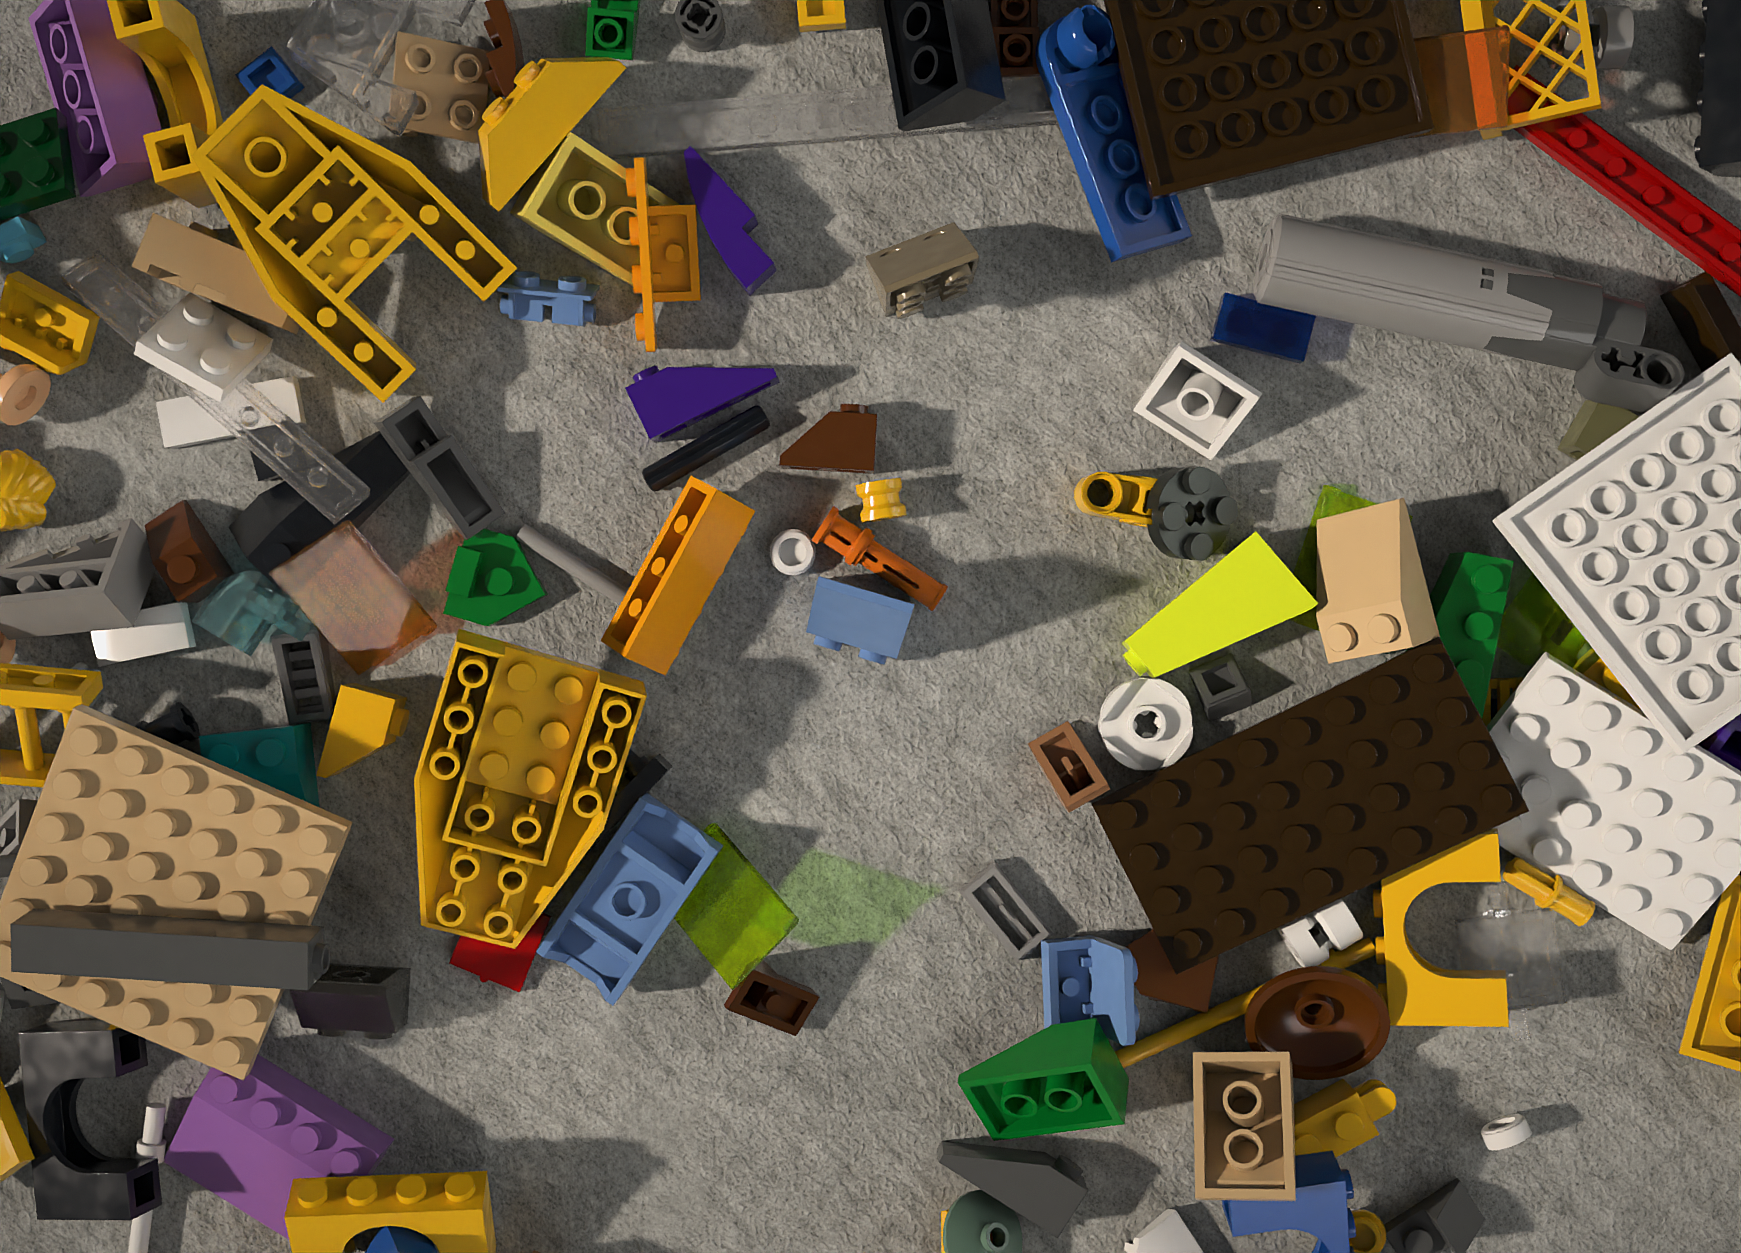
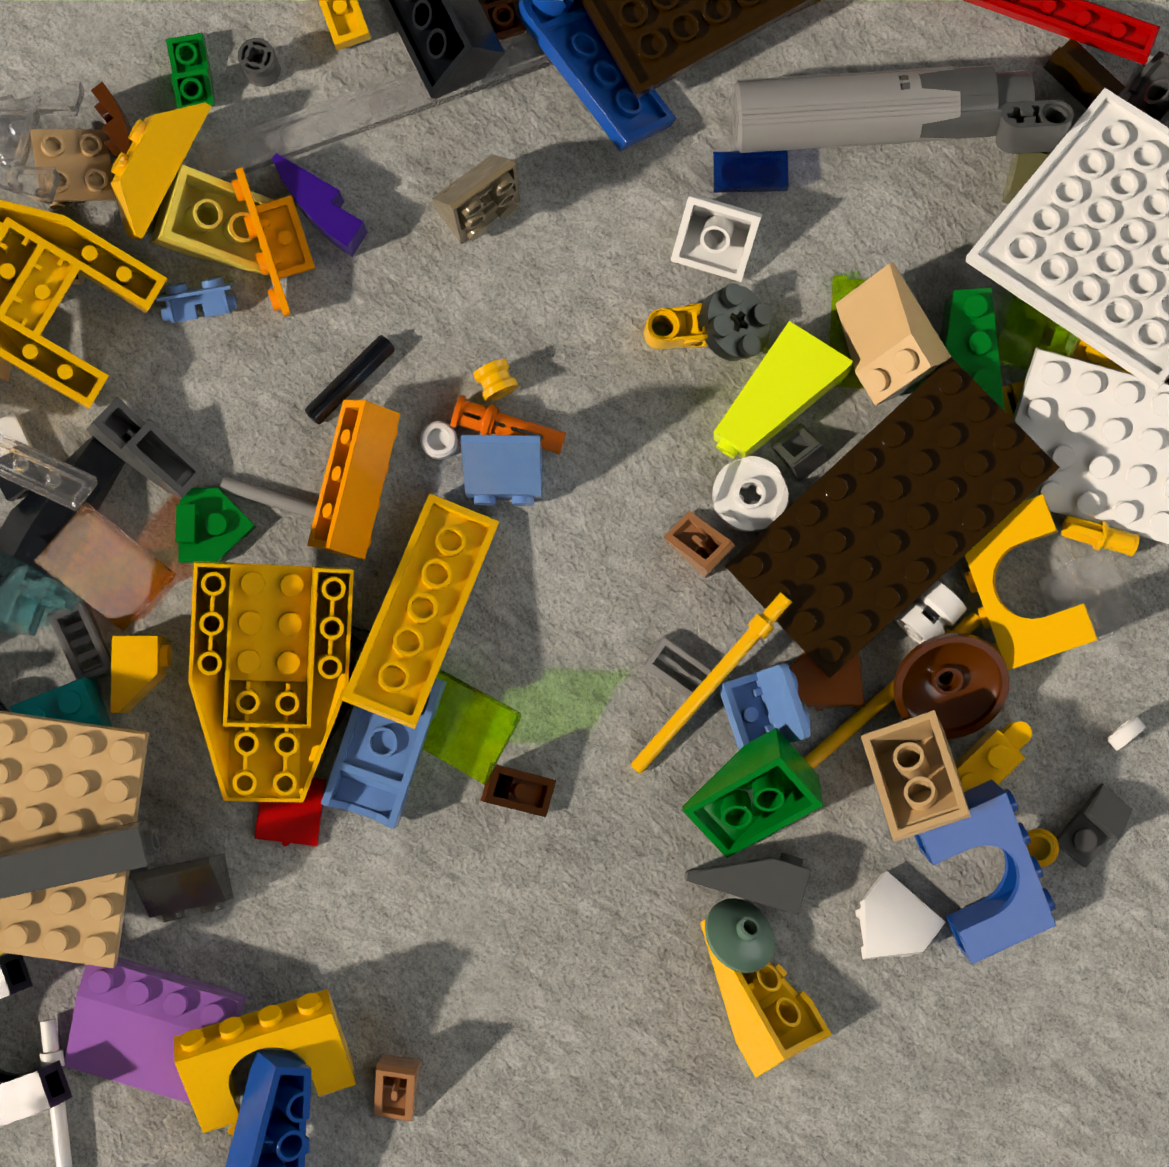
camera: 15 degrees left, 5 degrees down
(686, 395) = (324, 341): dark purple slope -> none
(715, 760) = (420, 611): none -> yellow plate
(836, 443) = (448, 347): reddish brown slope -> none
(1111, 892) = (759, 627): none -> yellow bar

